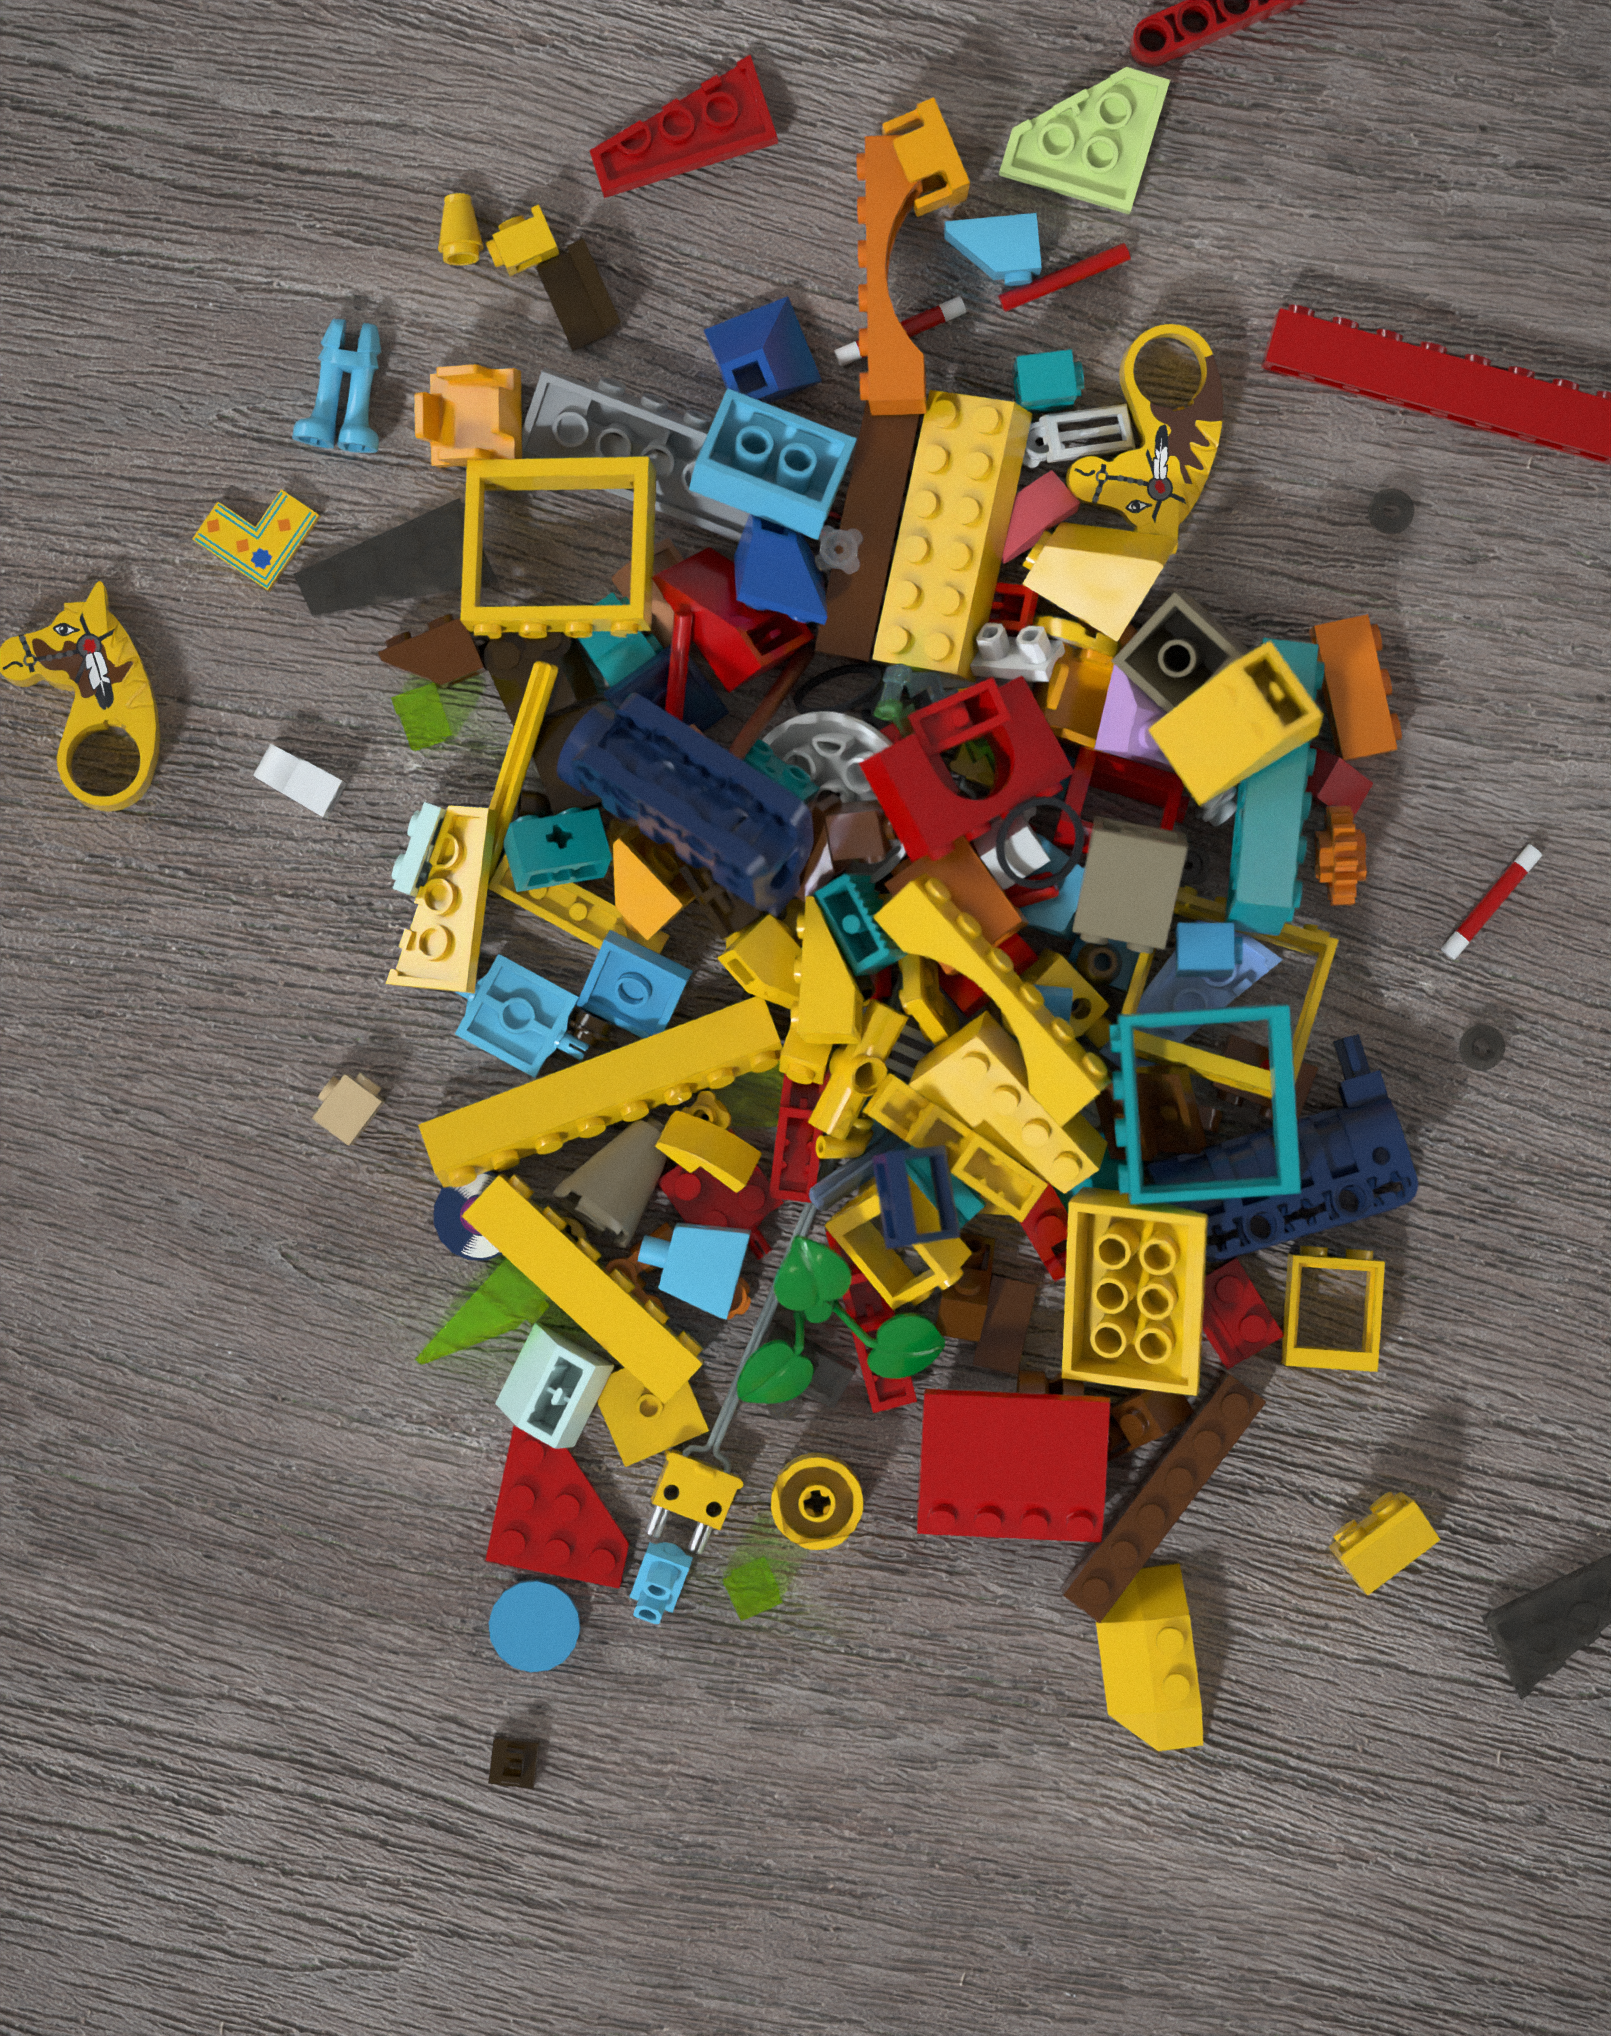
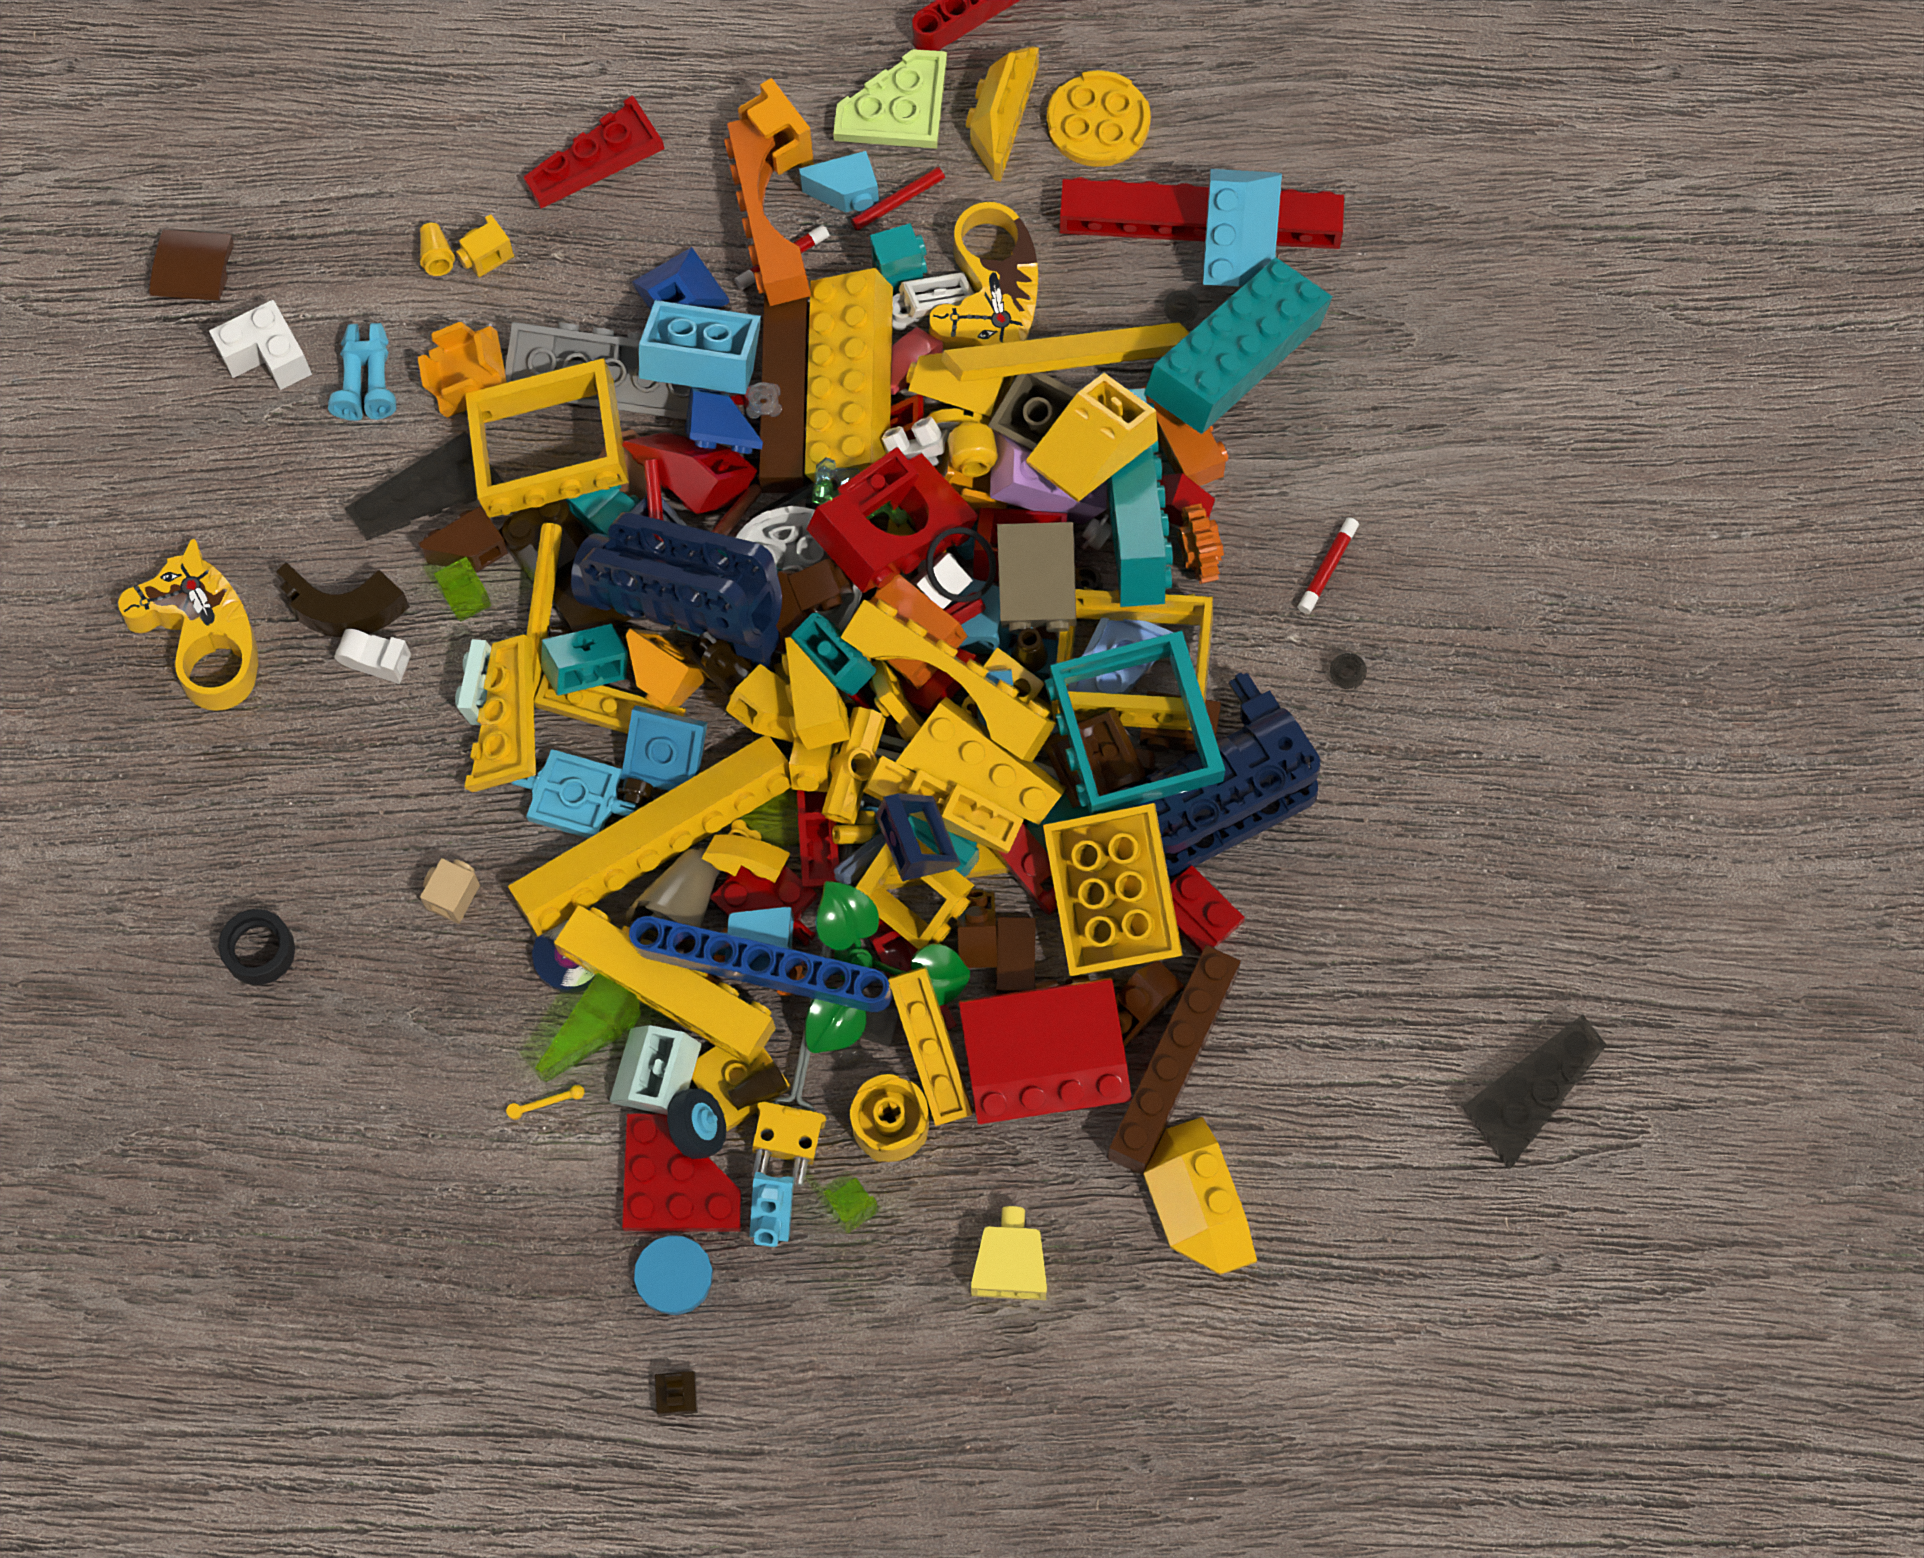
camera: 10 degrees left, 20 degrees down
(74, 1131) = (238, 926): none -> black tyre
(145, 186) = (191, 265): none -> reddish brown slope
(225, 316) = (258, 339): none -> white brick
(260, 550) = (313, 499): yellow tile -> none
(287, 722) = (363, 609): none -> dark brown arch
(384, 1391) = (515, 1111): none -> yellow hinge
(579, 296) = (535, 277): dark brown panel -> none
(592, 1464) = (696, 1123): none -> black wheel
(672, 1433) = (760, 1085): none -> dark brown cone
(677, 1307) = (746, 951): none -> blue beam
(881, 1428) = (930, 1046): none -> yellow plate
(922, 1691) = (1010, 1260): none -> light yellow torso
(1086, 684) = (972, 448): none -> yellow head
(1207, 949) = (1110, 620): dark azure brick -> none
(1222, 178) = (1001, 107): none -> yellow wedge
(1234, 578) = (1062, 352): none -> yellow tile
(1326, 1357) = (1287, 923): yellow window -> none
(1346, 213) = (1098, 119): none -> yellow tile
(1383, 1541) = (1366, 1057): yellow slope -> none
(1449, 602) = (1237, 345): none -> teal brick
(1489, 432) = (1240, 225): none -> medium azure slope

